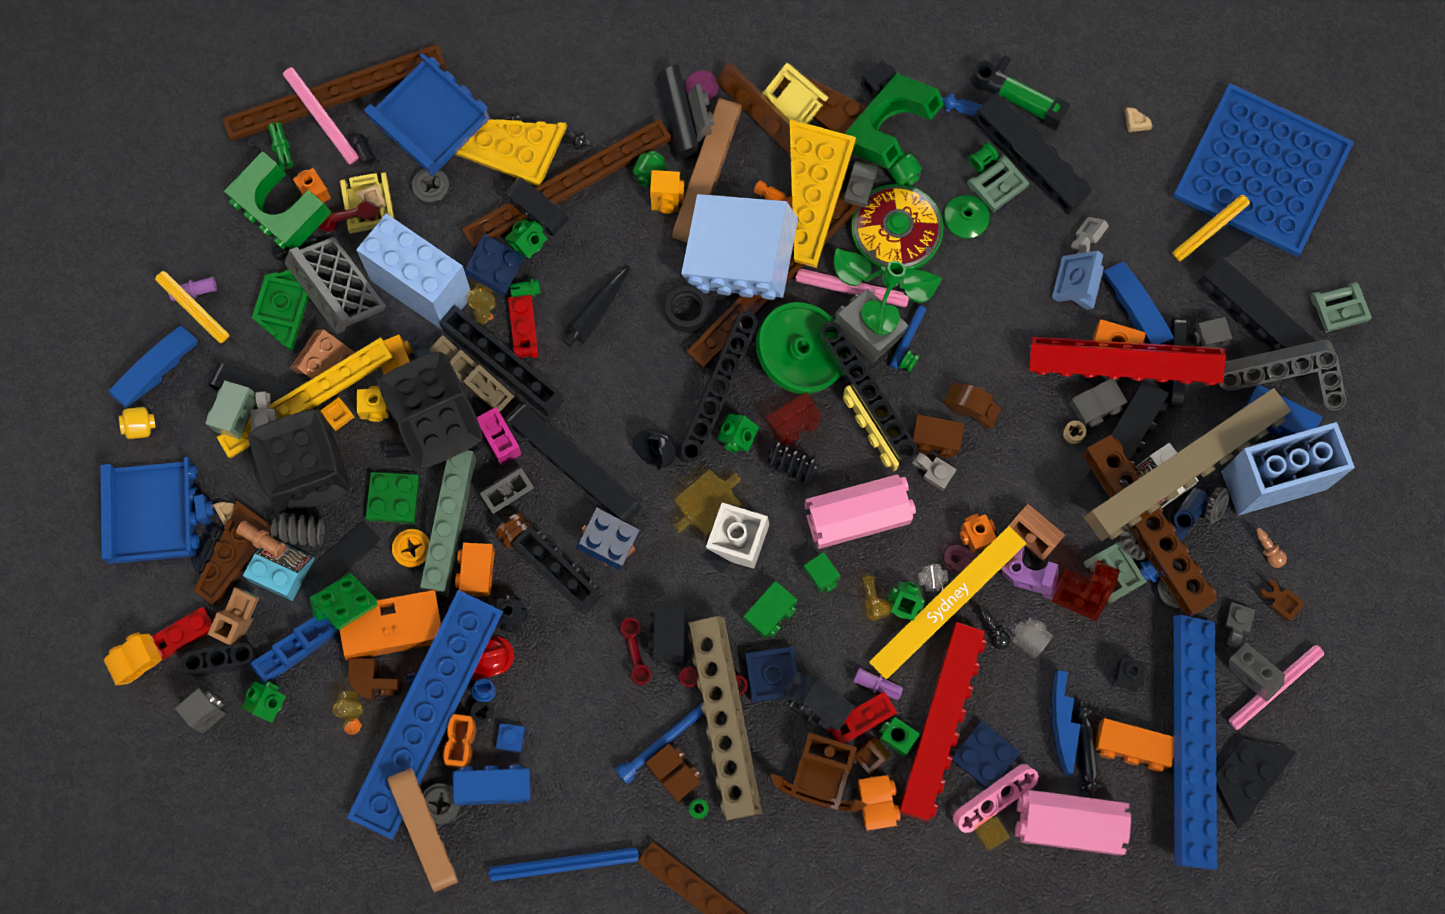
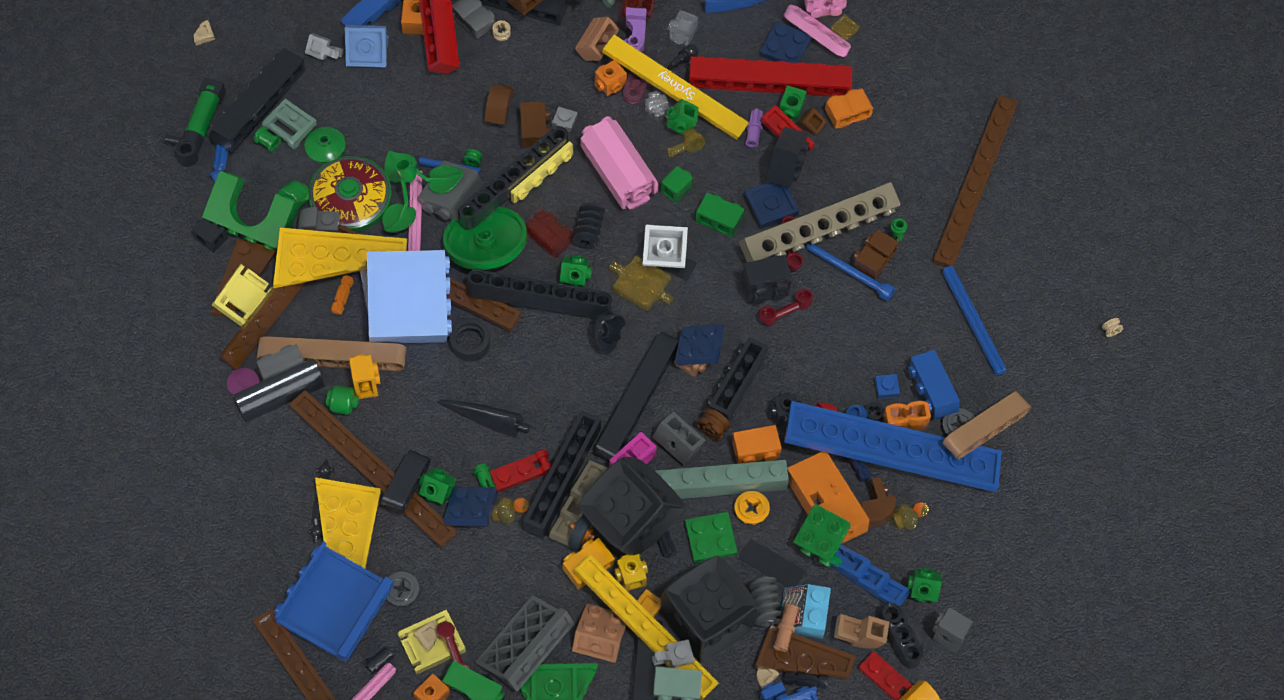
camera: 105 degrees left, 10 degrees down
(413, 270) = (503, 557): light blue brick -> none
(822, 774) = (840, 148): reddish brown piece -> none

